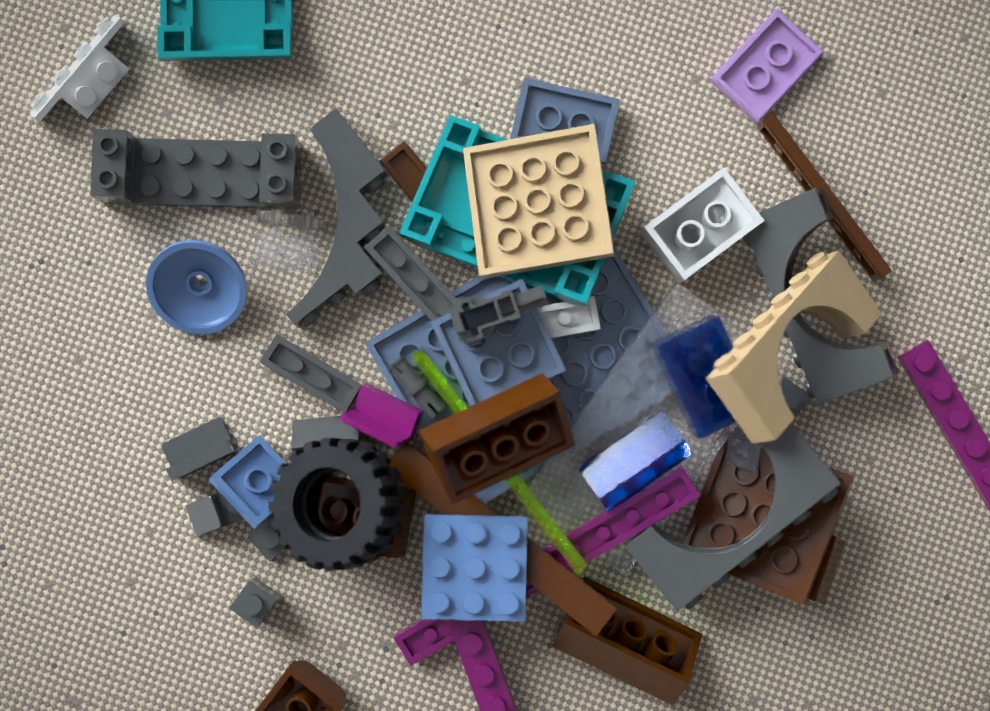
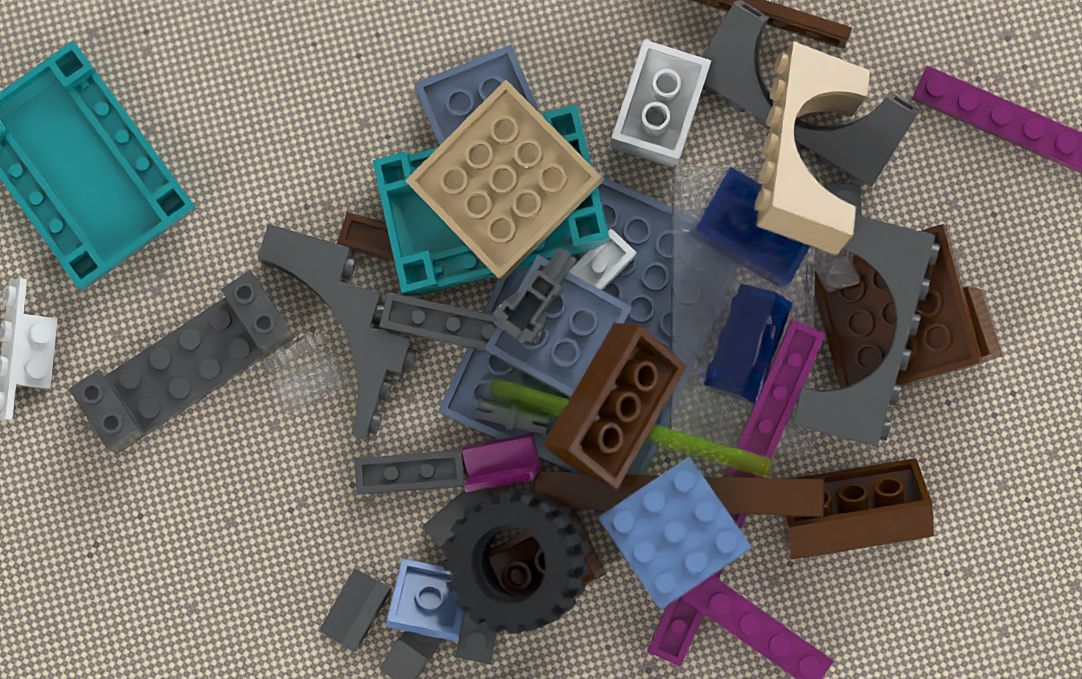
camera: 25 degrees left, 5 degrees down
(185, 300) = (257, 486): medium blue dish -> none

